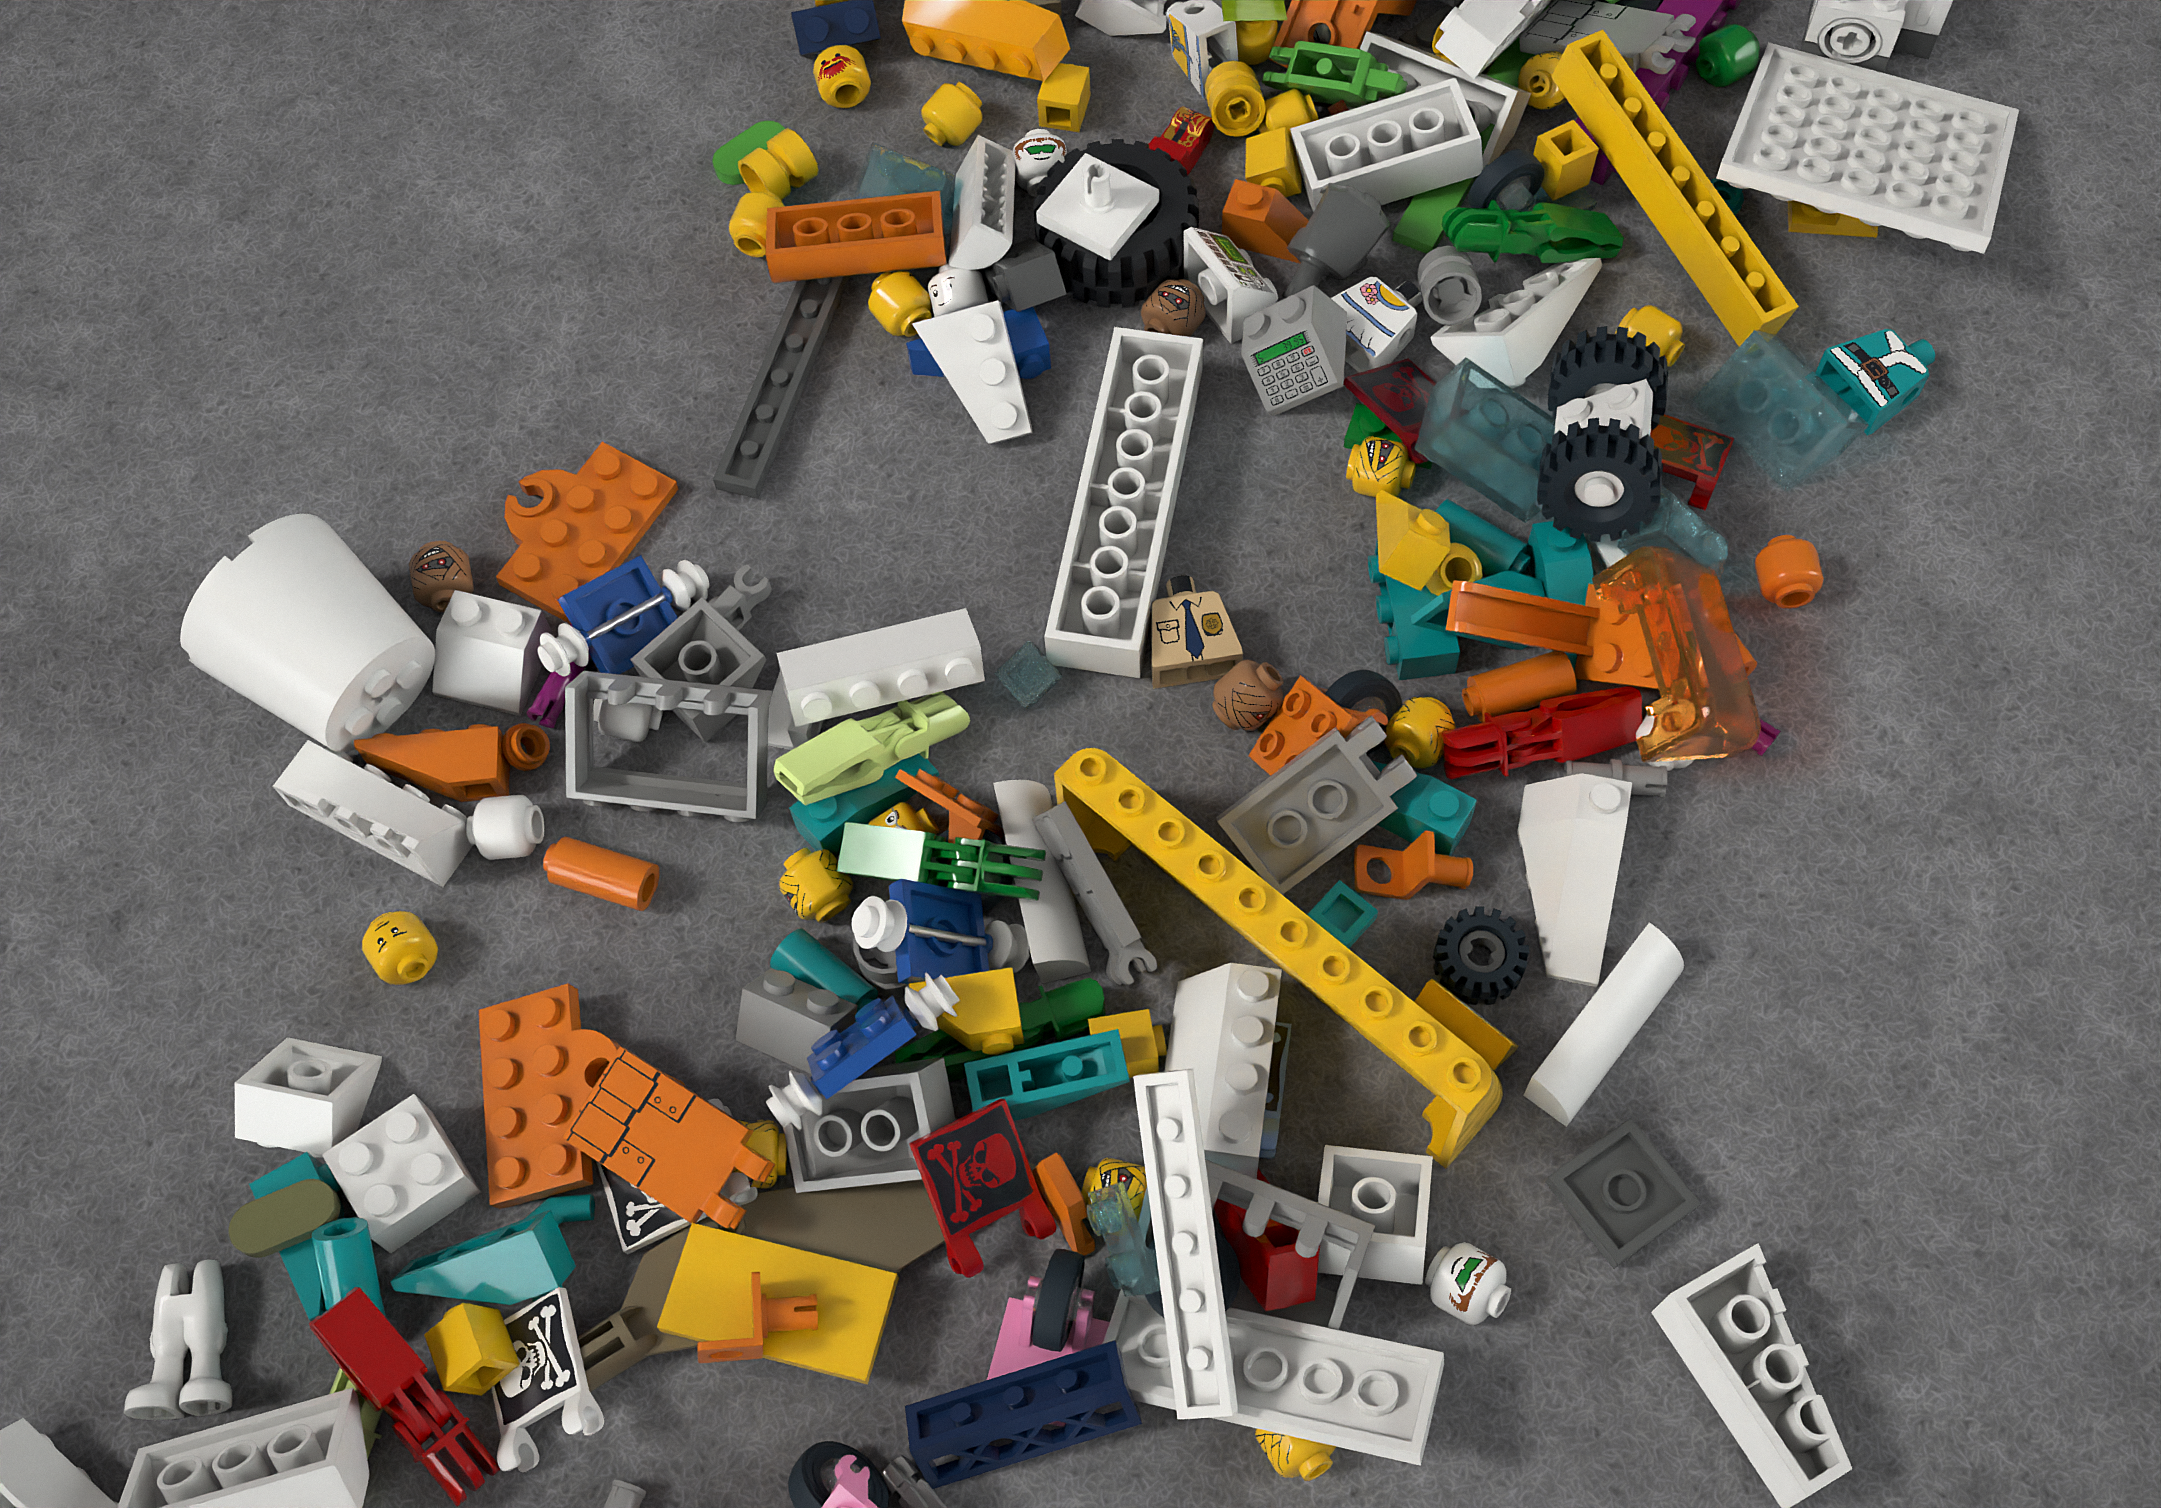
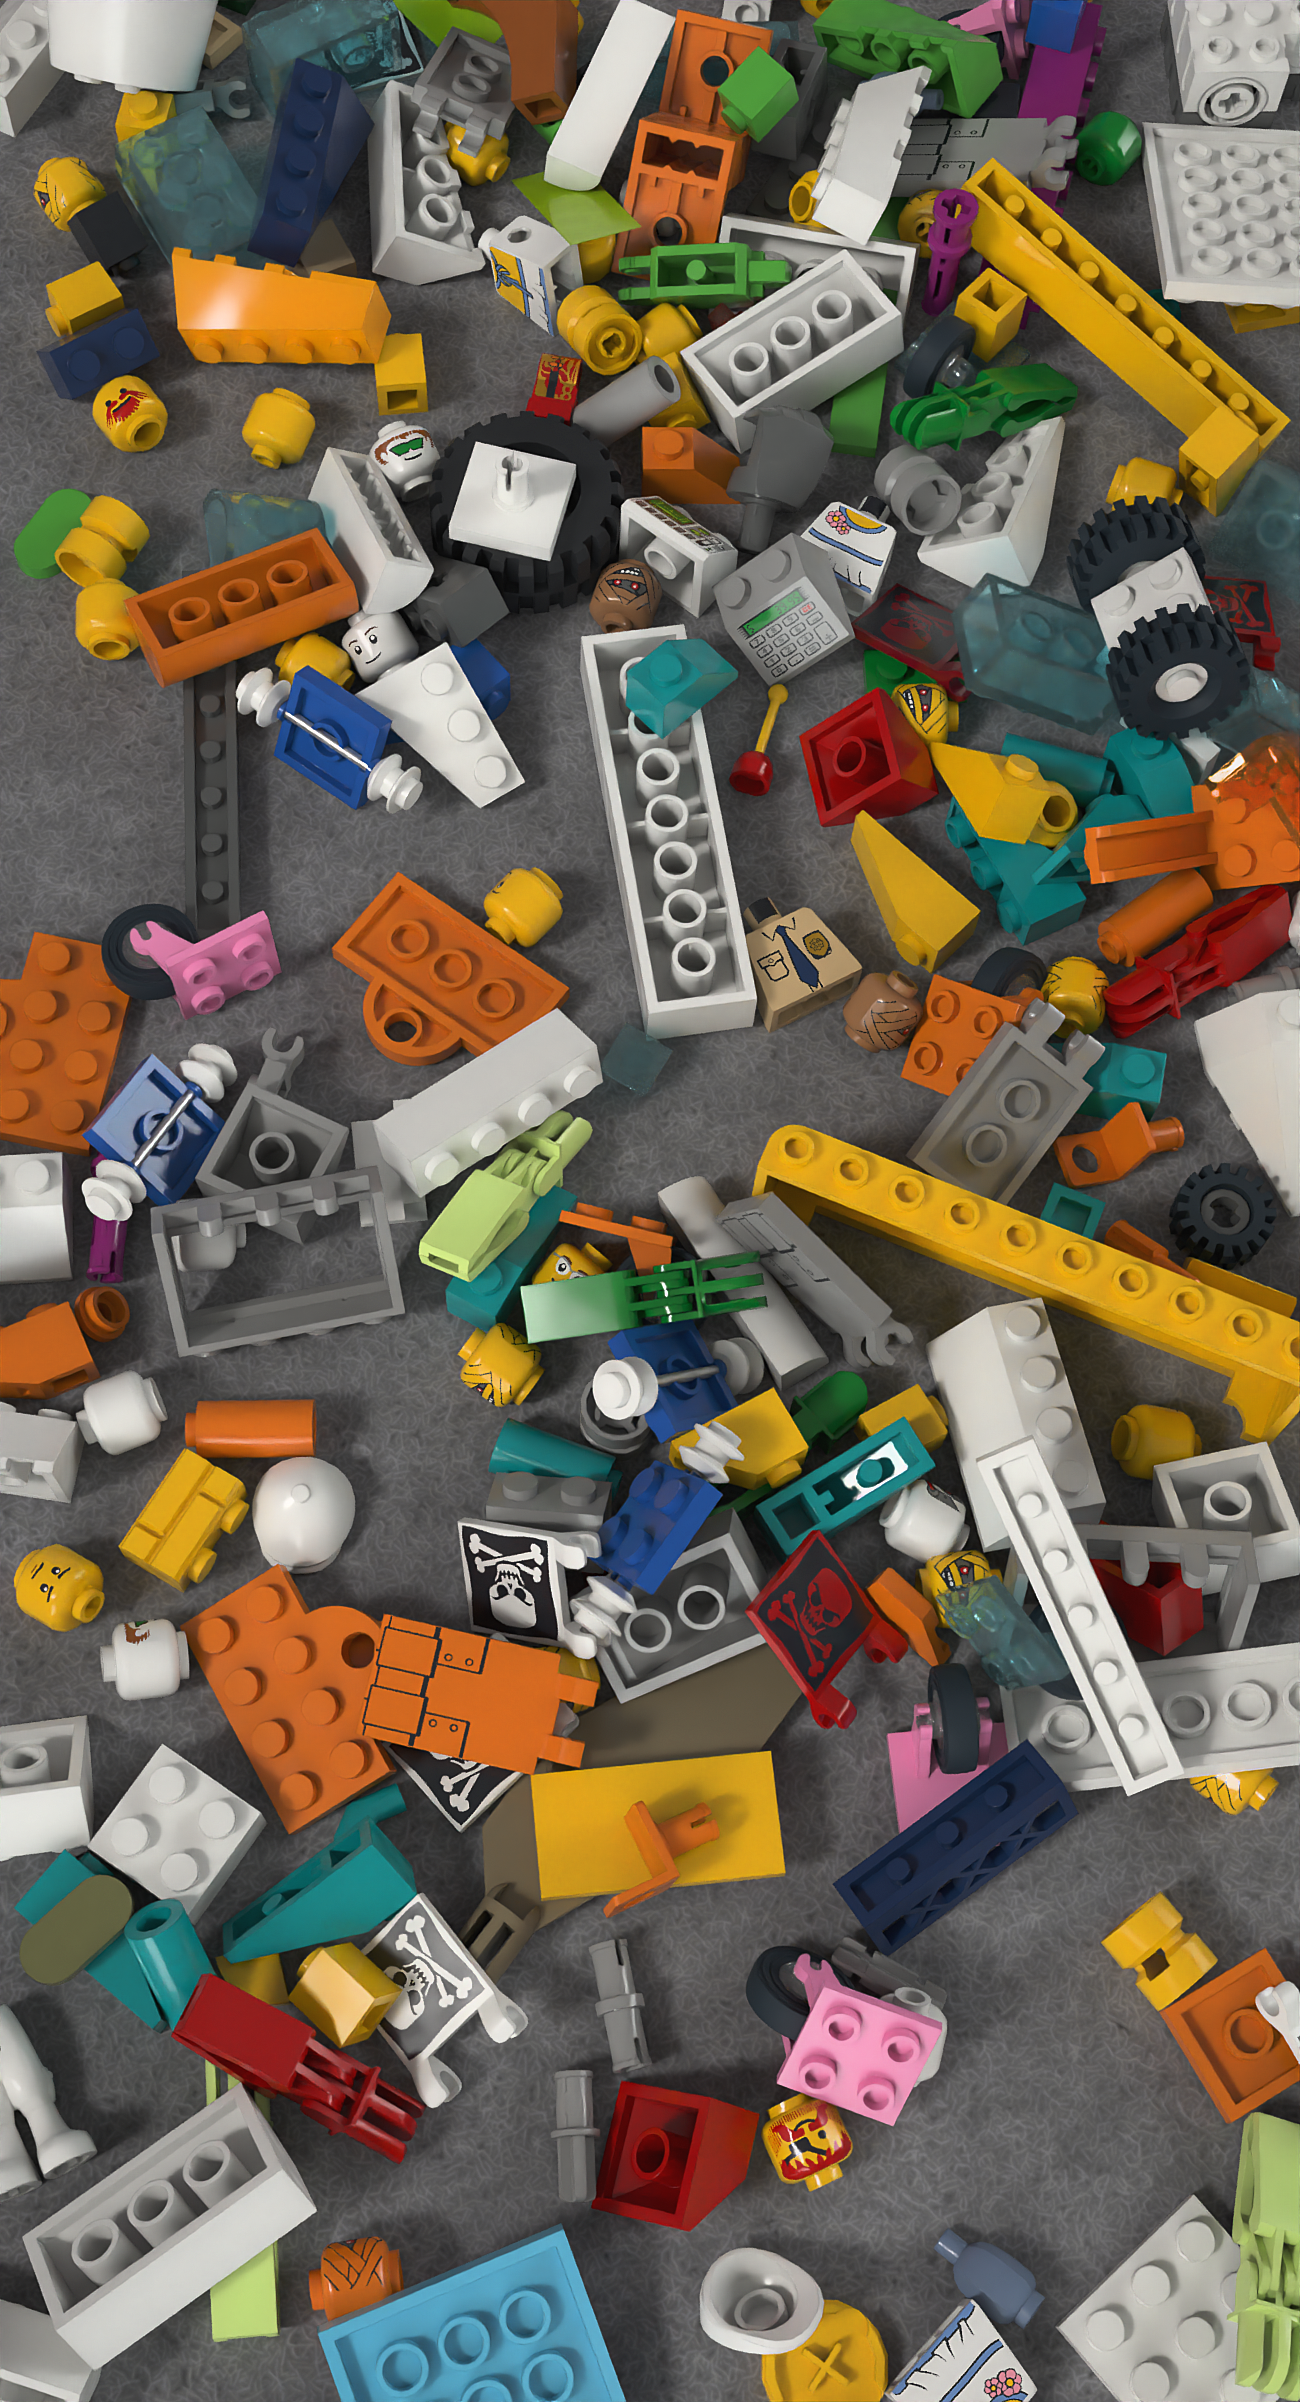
camera: 30 degrees left, 5 degrees up
(416, 1311) = (259, 1977): none -> yellow tile
(439, 1026) = (145, 1659): none -> white head
(517, 928) = (185, 1521): none -> yellow brick
(612, 953) = (303, 1513): none -> white hat
(686, 483) = (159, 955): none -> bright pink plate
(690, 1444) = (620, 2006): none -> light grey pin
(747, 1062) = (520, 1583): none -> flag
(886, 354) = (330, 737): none -> blue plate
(898, 563) = (440, 977): none -> orange plate
(986, 528) = (523, 907): none -> yellow head
(1110, 1127) = (924, 1521): none -> white head
(1173, 379) = (676, 683): none -> teal slope
(1224, 473) = (753, 769): none -> red hinge
(1230, 157) = (628, 401): none -> light grey brick
(1319, 625) = (917, 905): none -> yellow slope
(1320, 493) = (867, 762): none -> red slope
(1340, 1122) = (1153, 1437): none -> yellow head
(1397, 965) = (1135, 1243): none -> orange axle
(1545, 91) = (949, 241): none -> magenta pin
(1719, 320) = (1218, 458): none -> yellow slope

